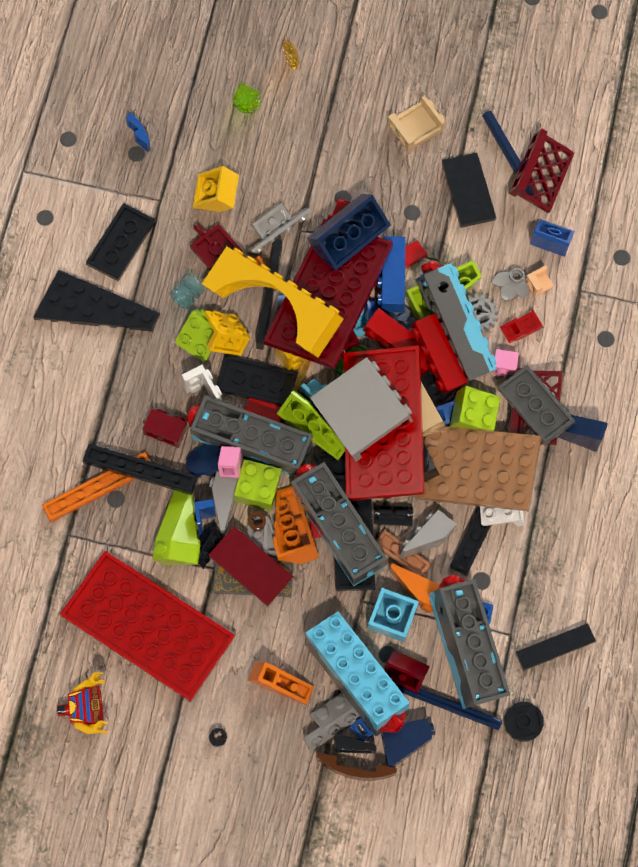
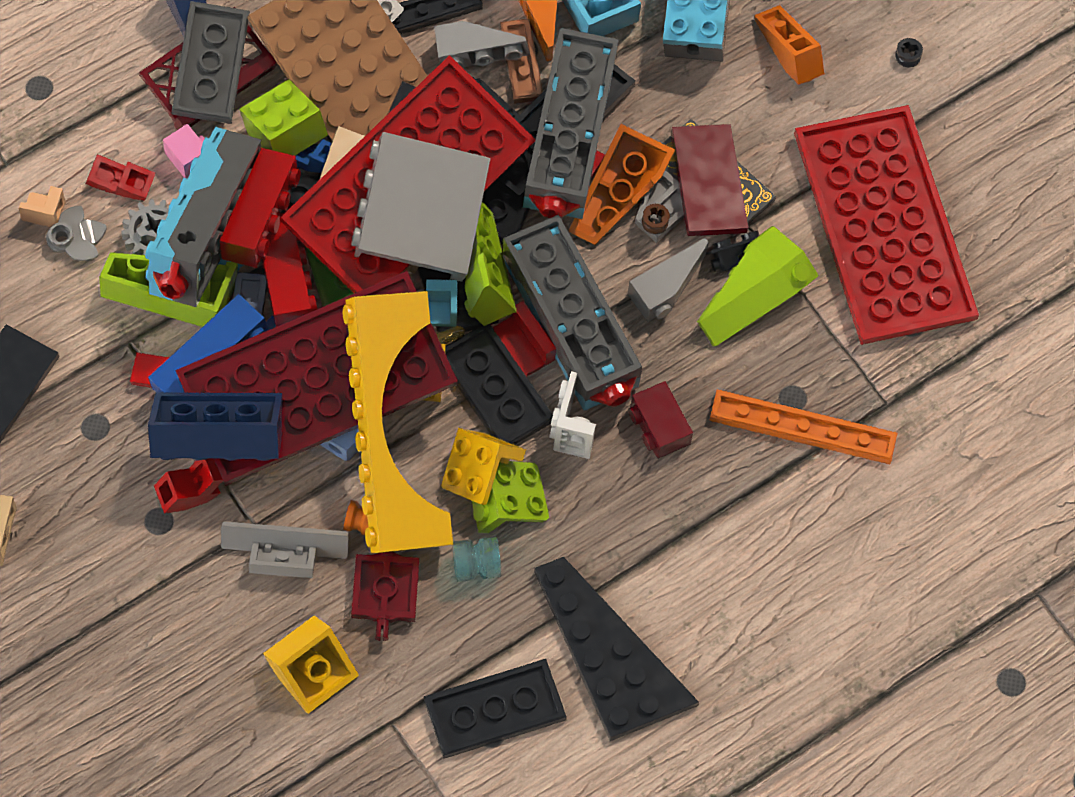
camera: 140 degrees left, 5 degrees down
(85, 706) = (1034, 192): torso -> none
(140, 469) = (737, 395): black tile -> none
(203, 460) = (653, 336): dark blue tile -> none
(204, 510) = (708, 277): blue panel -> none
(230, 462) = (627, 295): bright pink brick -> none
(246, 99) = (147, 752): clear neon green brick -> none
(257, 485) = (615, 257): lime brick -> none
(269, 294) = (400, 453): black tile -> none
(291, 54) = (27, 758): clear yellow gear -> none

